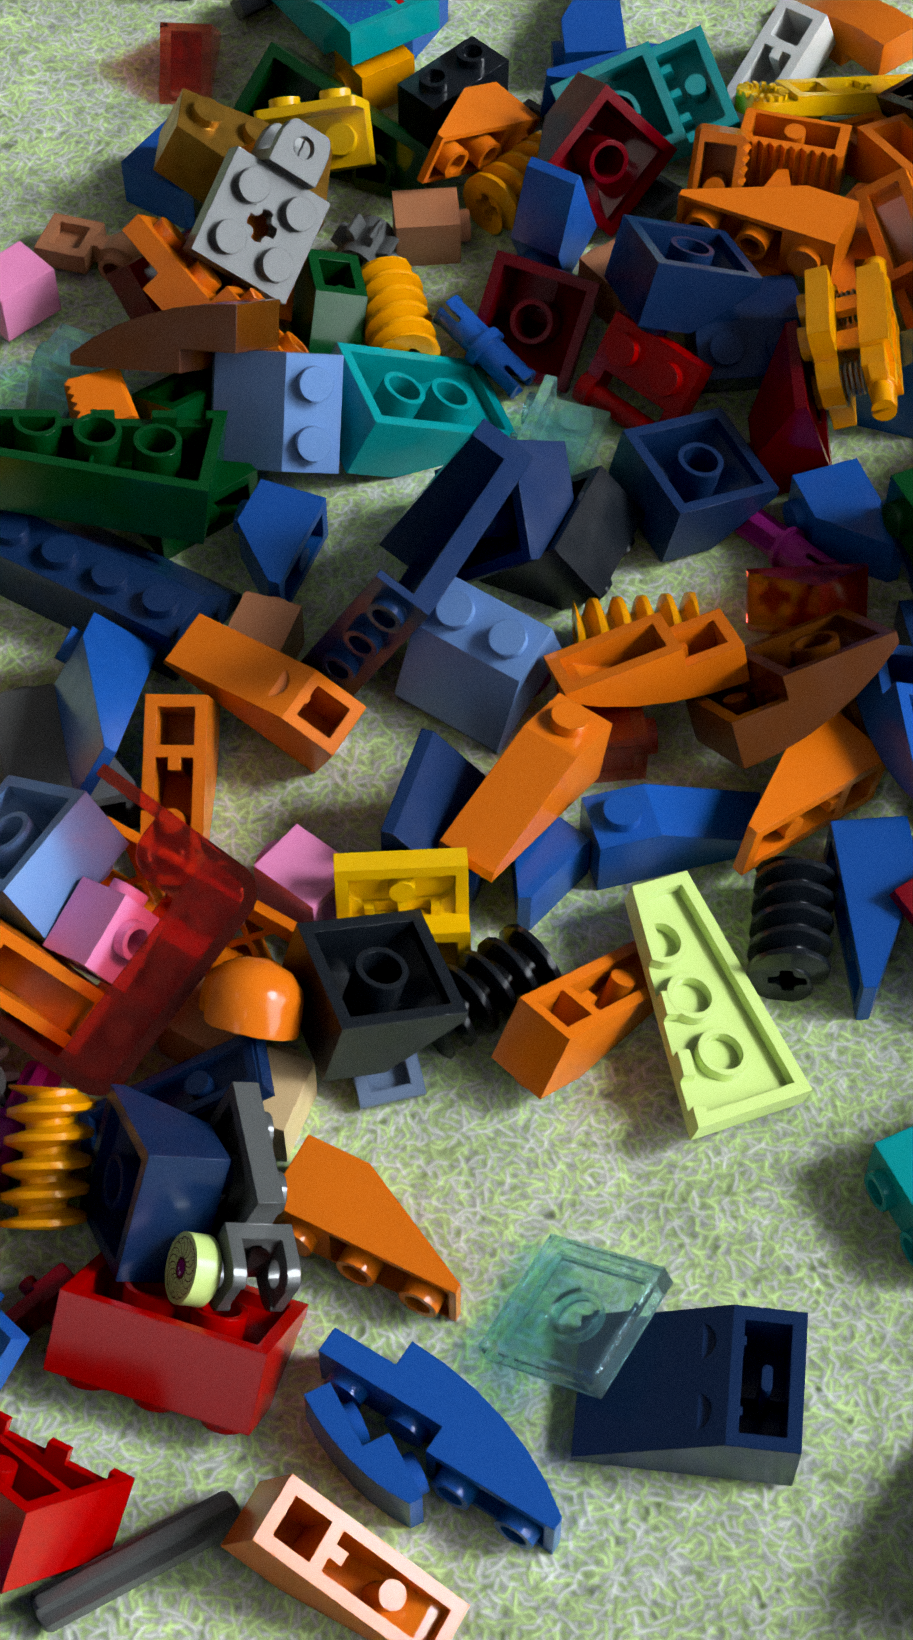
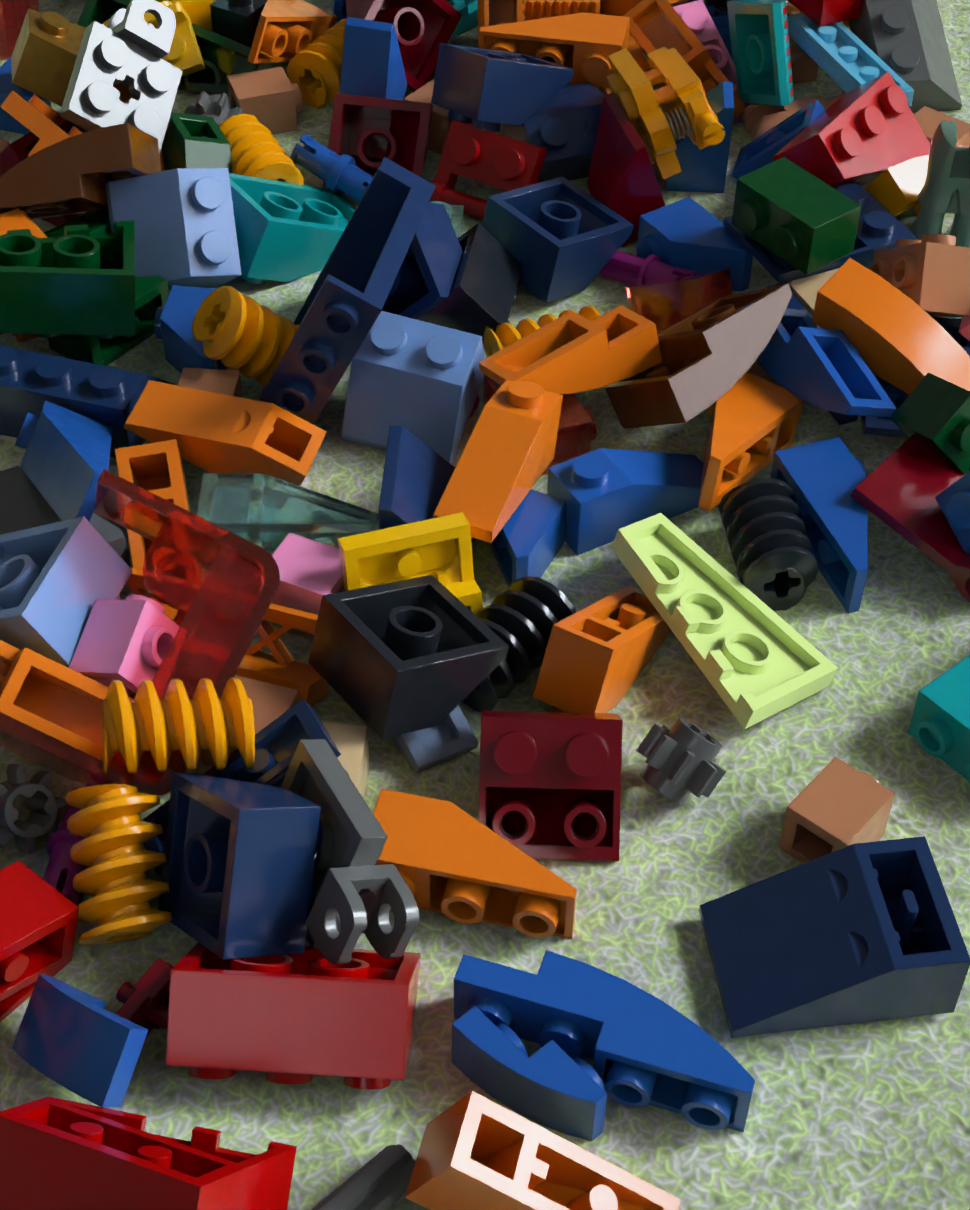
camera: 15 degrees left, 10 degrees down
(122, 1040) = (177, 724): none -> light orange piece
(193, 1269) = (304, 926): yellowish green tile -> none
(253, 999) = (296, 667): orange hair -> none
(275, 784) = (269, 508): none -> clear light blue slope
(316, 566) = (242, 333): none -> light orange piece
(478, 1155) = (552, 782): none -> dark red slope
(576, 1315) = (694, 899): clear light blue tile -> none
(614, 1162) = (681, 760): none -> dark grey gear
(748, 1258) = (834, 812): none -> nougat brick

